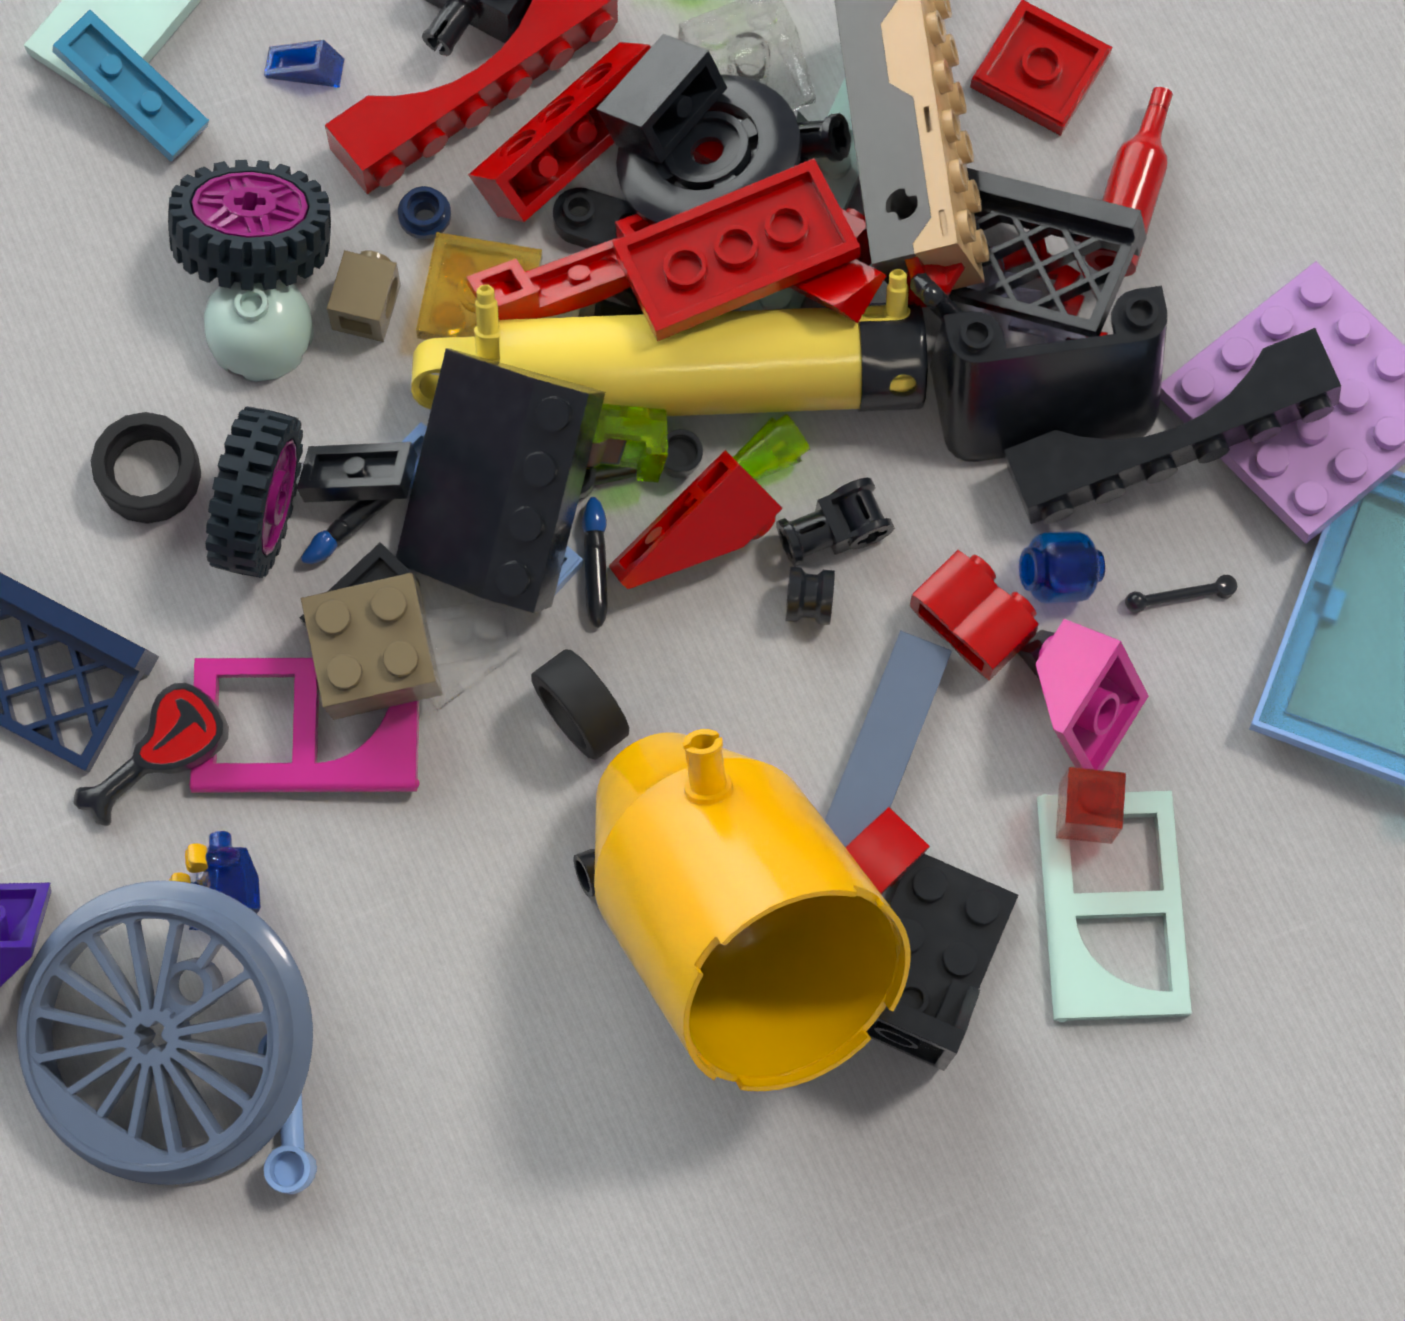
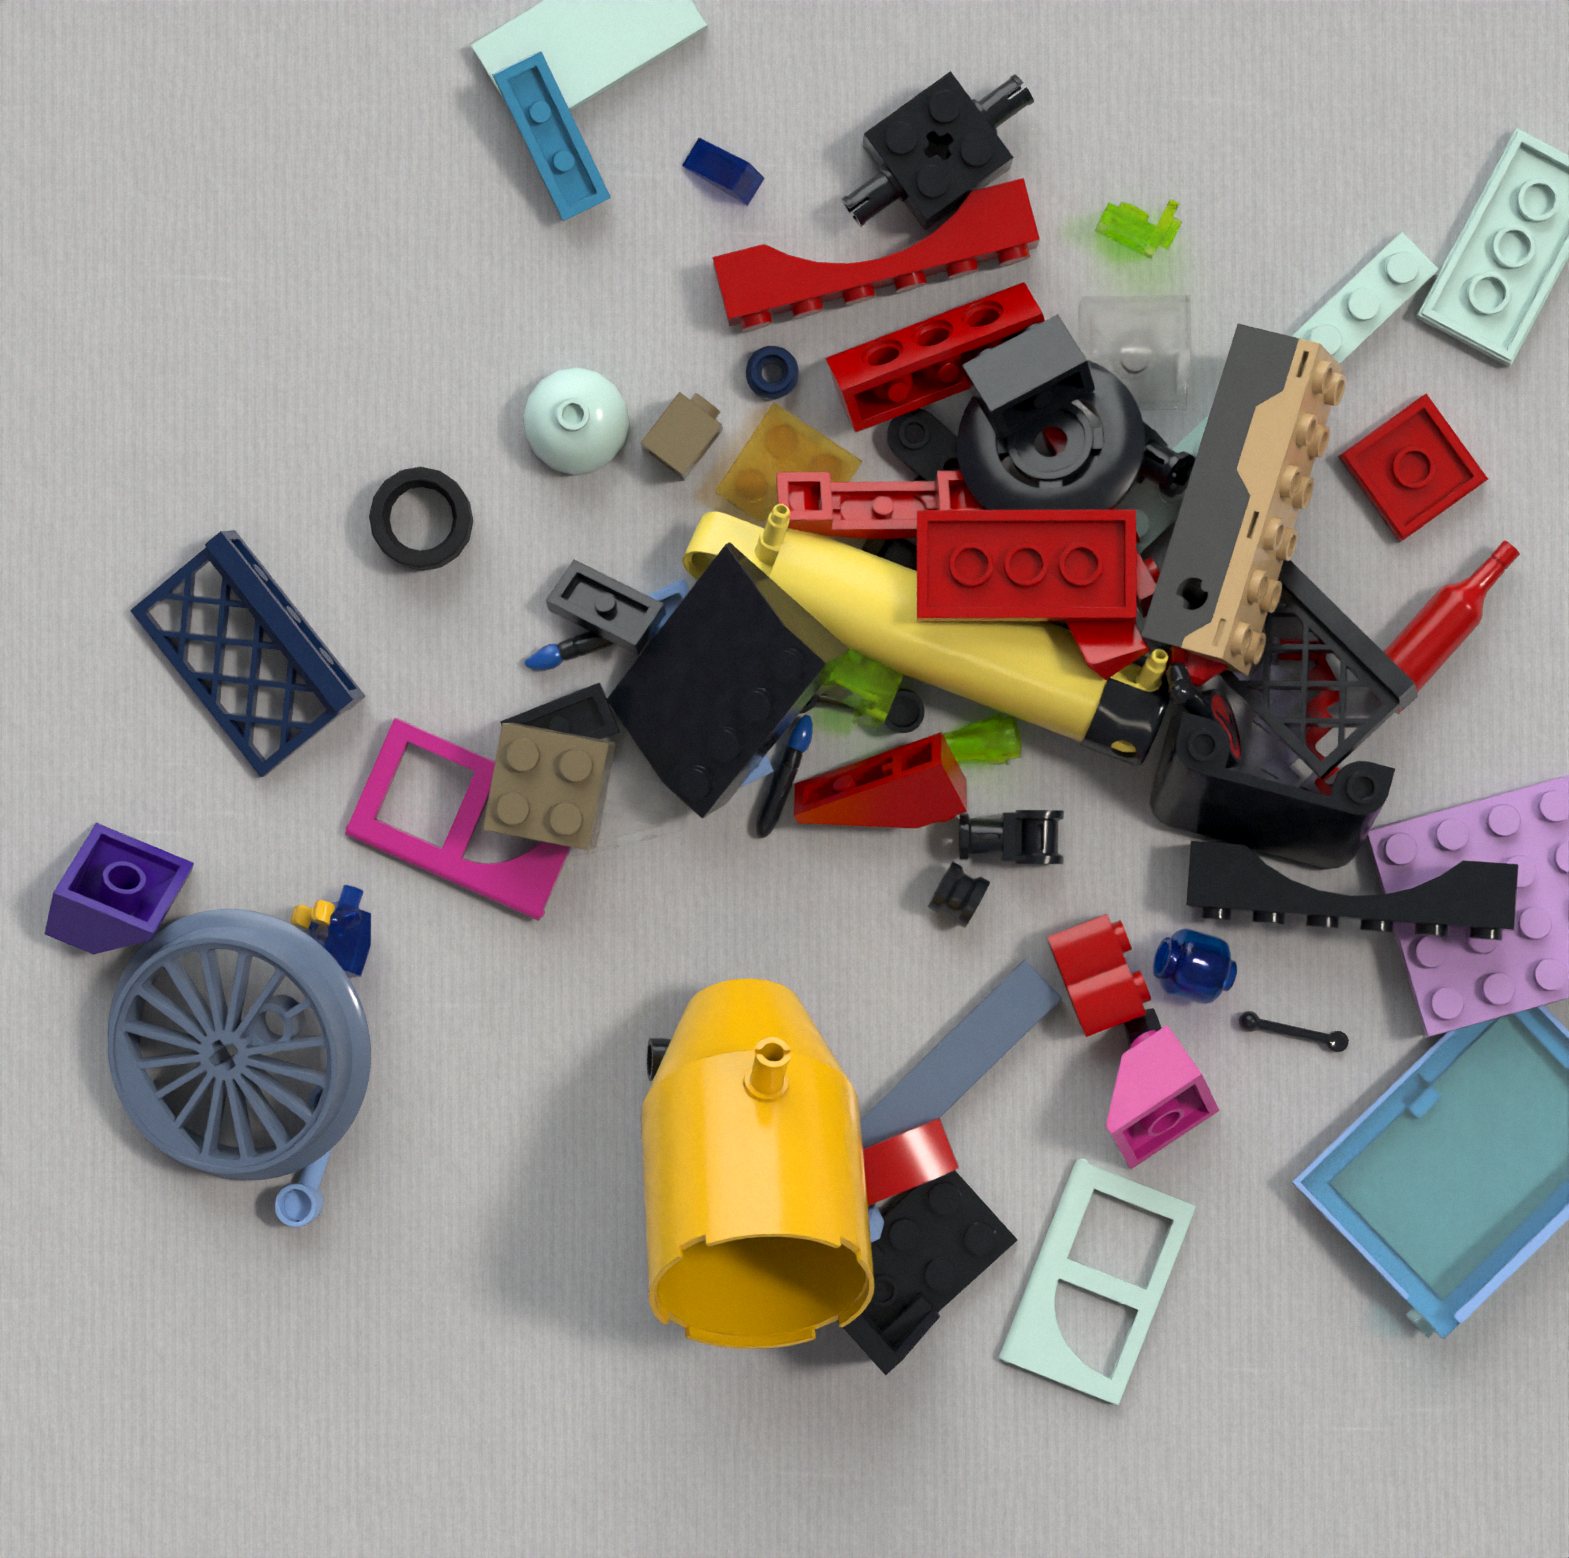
camera: 30 degrees right, 15 degrees up
(181, 735) = (356, 785): black piece -> none
(249, 224) = (603, 331): black wheel -> none
(254, 492) = (503, 600): black wheel -> none
(580, 704) = (710, 912): black tyre -> none
(1090, 805) = (1113, 1196): clear red brick -> none

